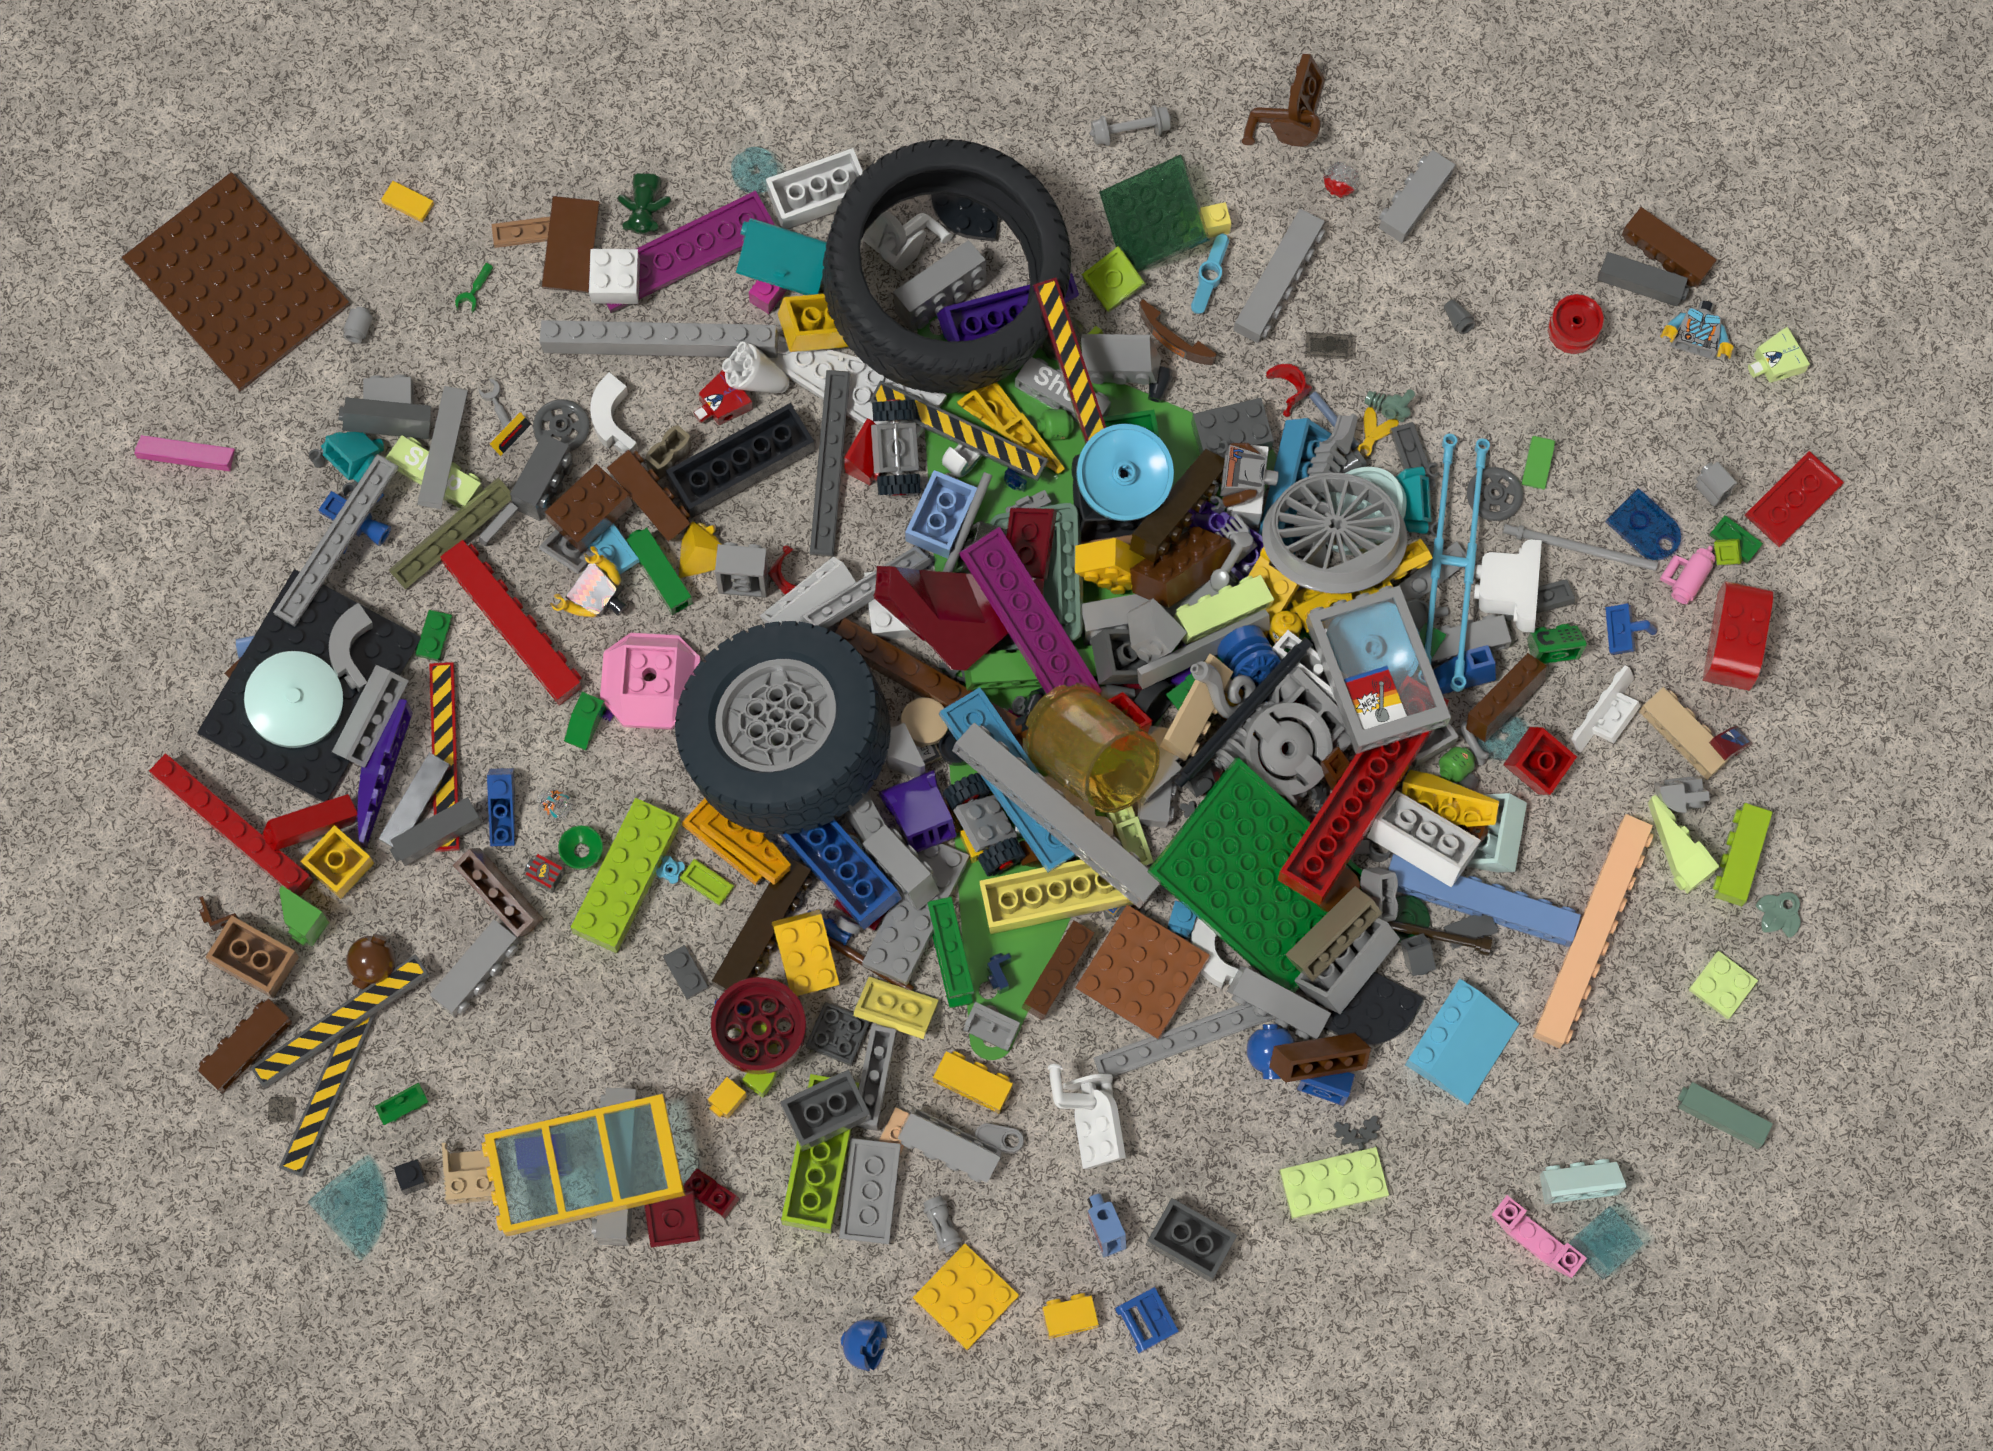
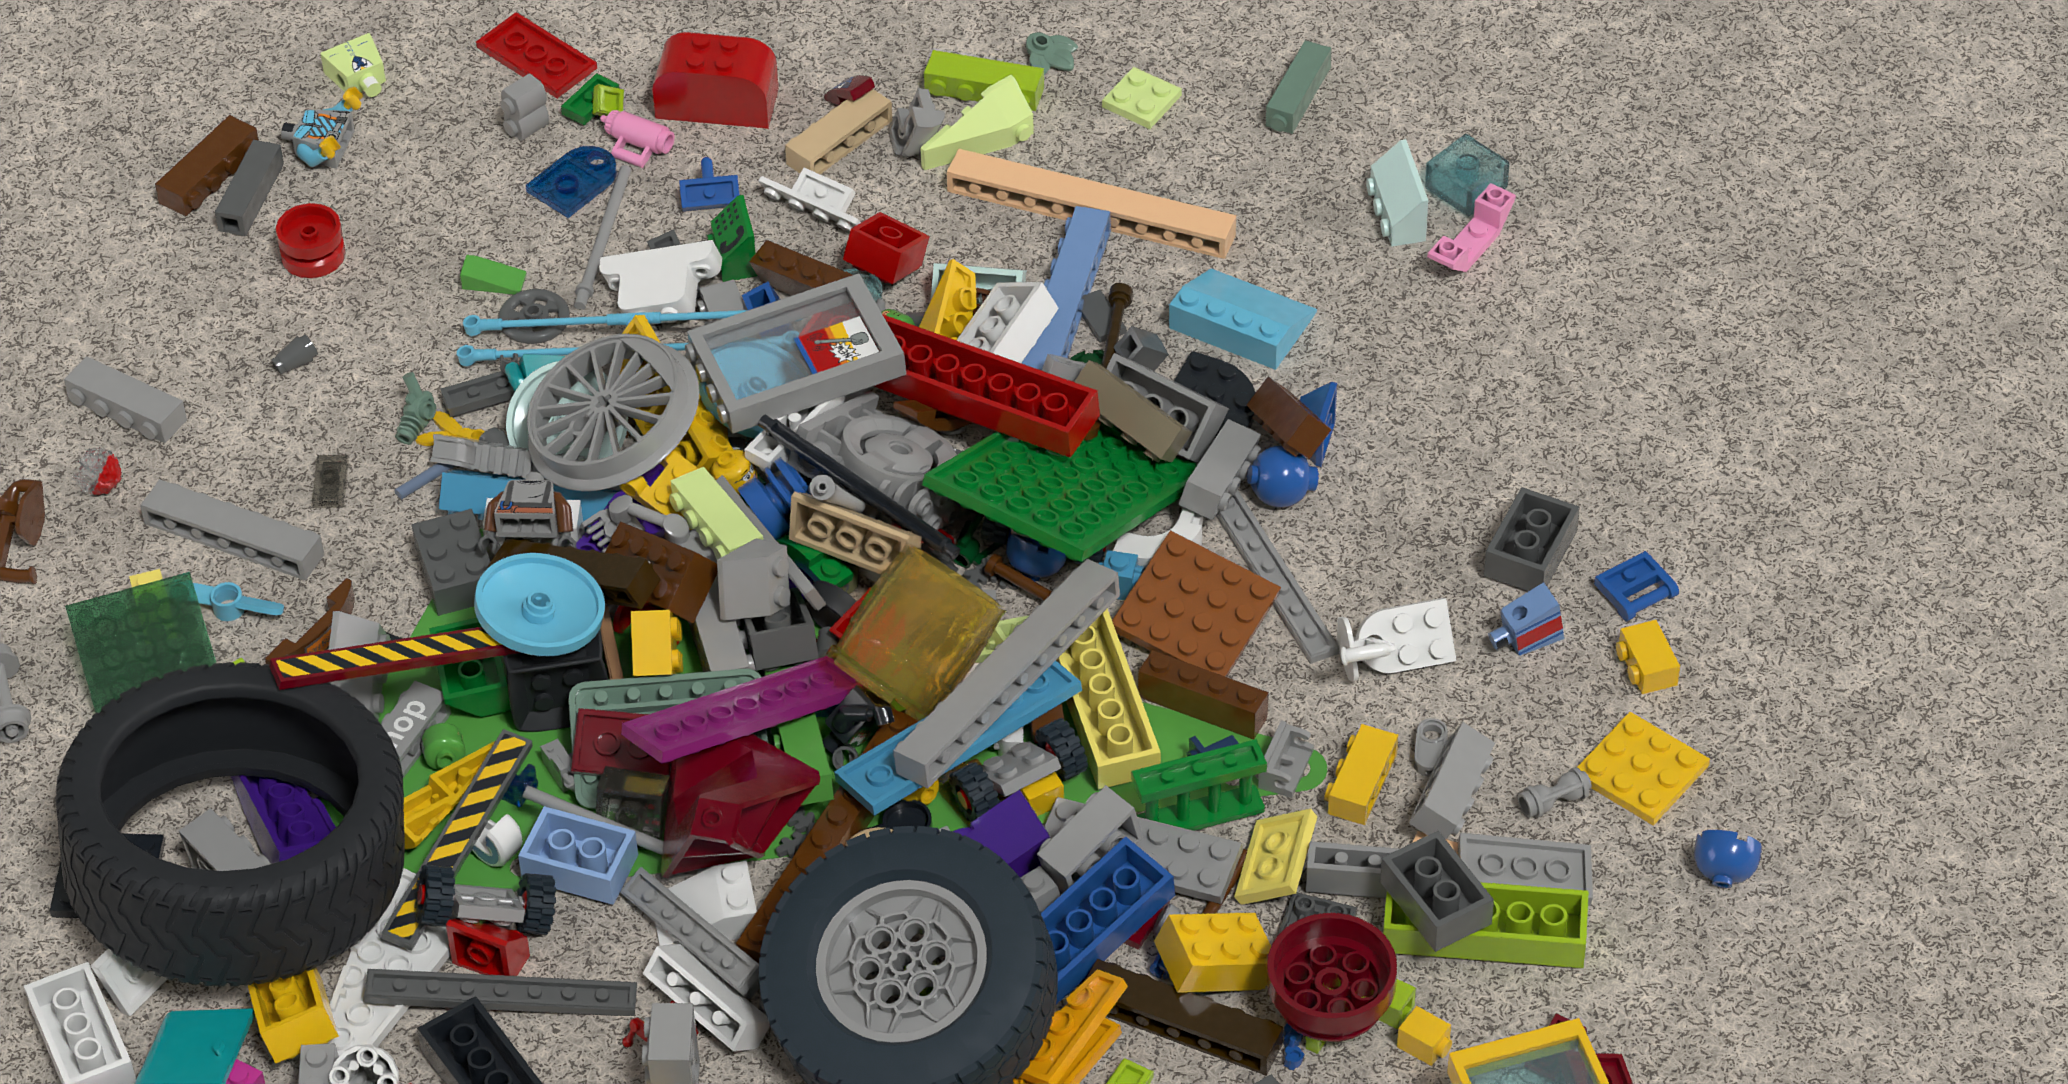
camera: 90 degrees left, 25 degrees down
(1296, 377) = (383, 502): red helmet -> none
(1334, 1182) = (1433, 424): yellowish green plate -> none
(1371, 1126) = (1371, 412): dark grey animal -> none

